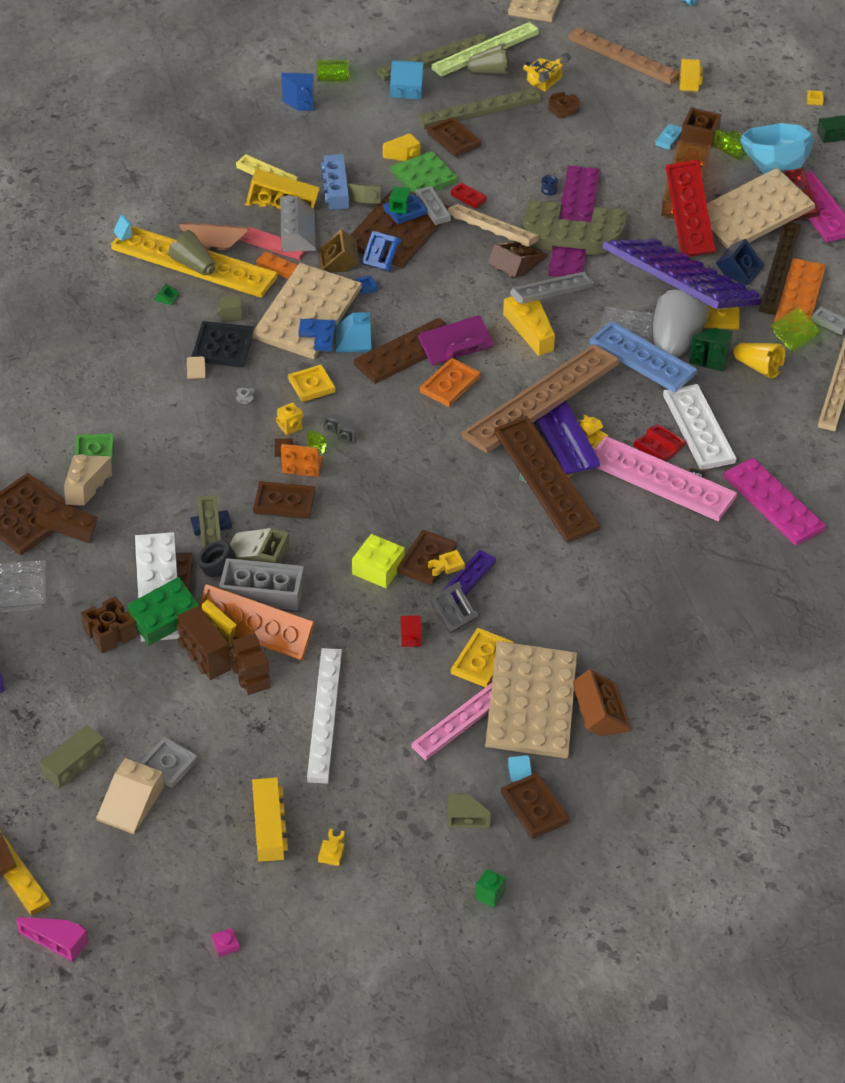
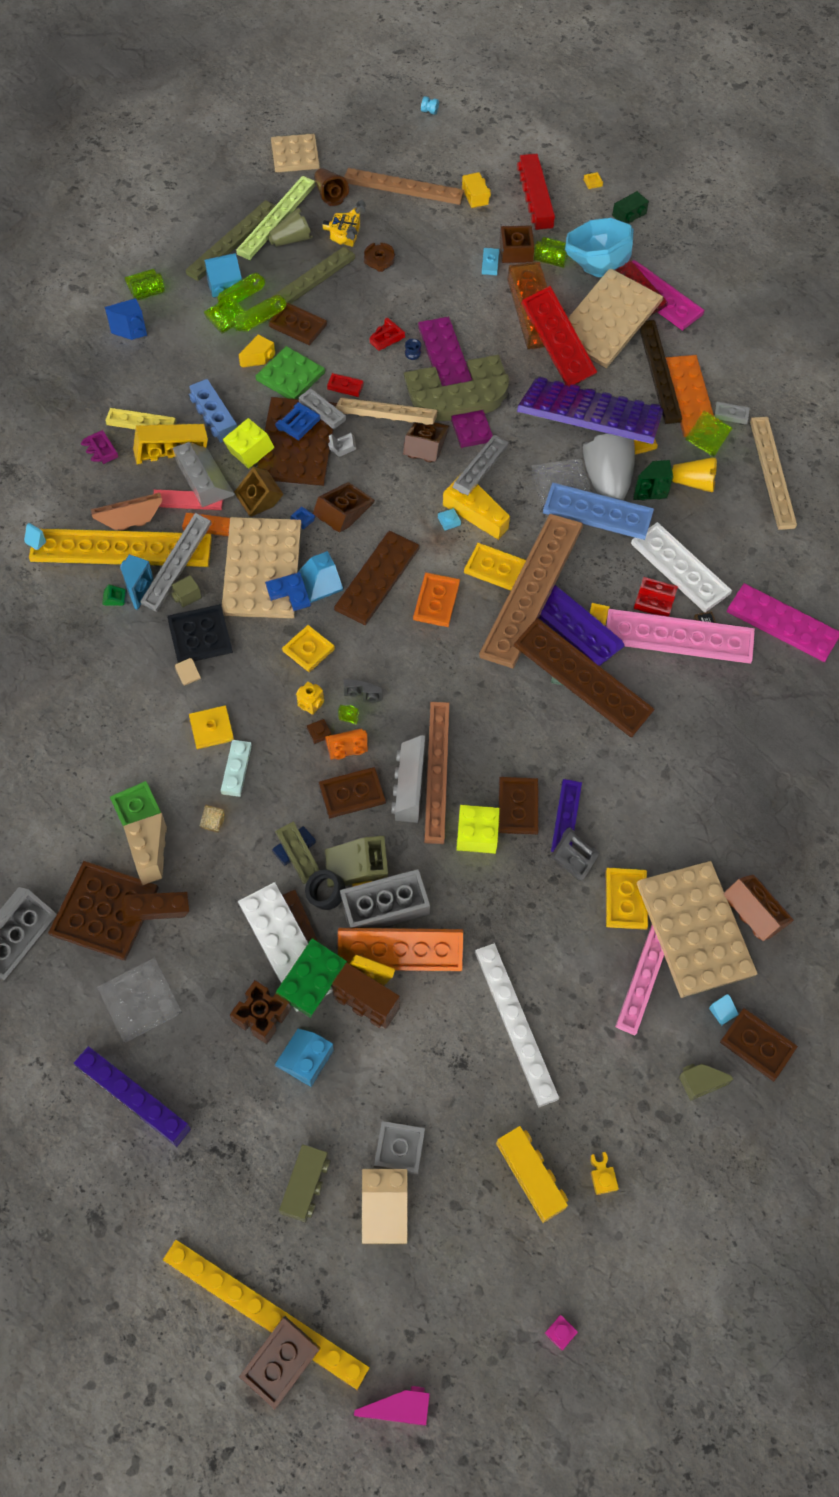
camera: 25 degrees left, 15 degrees up
(130, 673) = (305, 1056): none -> dark azure slope
(153, 479) = (212, 818): none -> clear yellow slope
(191, 285) = (137, 578): none -> dark azure slope
(192, 253) = (120, 543): olive cone -> none
(192, 415) = (211, 727): none -> yellow plate
(195, 451) = (236, 768): none -> light aqua plate
(219, 182) = (100, 447): none -> magenta plate
(232, 282) = (176, 562): none -> light grey plate
(245, 395) = (251, 689): light grey plate -> none
(250, 664) = (424, 1002): reddish brown brick -> none
(340, 506) = (409, 780): none -> light grey slope
(350, 212) = (248, 443): none -> neon yellow brick
(365, 192) = (254, 411): olive slope -> none
(368, 509) = (437, 773): none -> nougat plate
(376, 249) = (293, 476): plate -> none
(396, 112) = (230, 314): none -> clear neon green plate
(399, 200) = (292, 415): green brick -> none
(407, 286) = (342, 506): none -> reddish brown slope
(410, 630) = (548, 896): red brick -> none
(436, 241) = (343, 444): none -> light grey bracket
(449, 562) = (545, 806): yellow plate -> none
(455, 340) = (419, 552): magenta bracket -> none
(490, 888) = (771, 1158): green brick -> none
(501, 326) = (449, 519): none -> medium azure plate
(517, 371) = (494, 566): none -> yellow plate
(531, 168) = (386, 335): none -> red wing
(550, 38) = (331, 186): none -> reddish brown cone
(590, 425) = (589, 602): yellow plate -> none
(740, 262) = (624, 377): dark blue slope -> none
(748, 91) = (536, 192): none -> red brick

